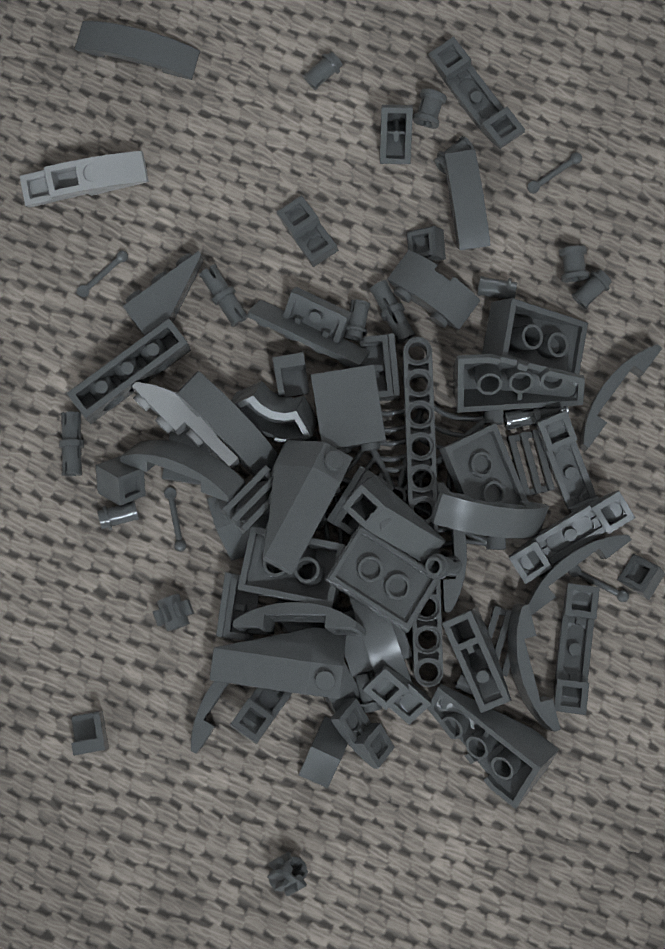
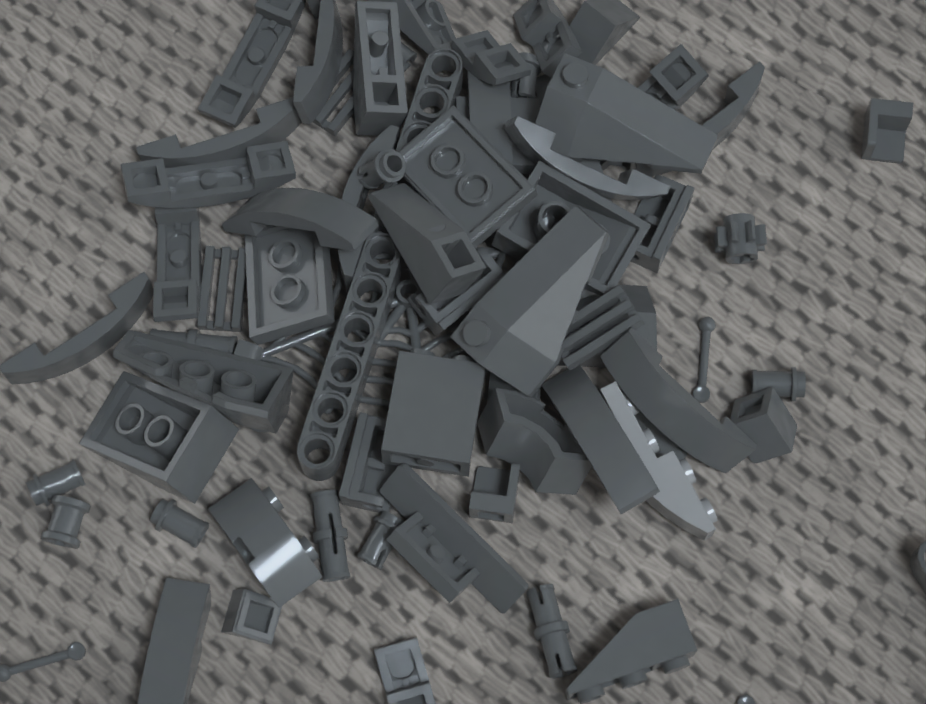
camera: 160 degrees left, 10 degrees down
(71, 443) = (816, 495): dark grey pin -> none
(136, 364) = (712, 558): dark grey brick -> none
(622, 595) = (174, 102): dark grey hinge -> none
(641, 576) = (142, 116): dark grey slope -> none

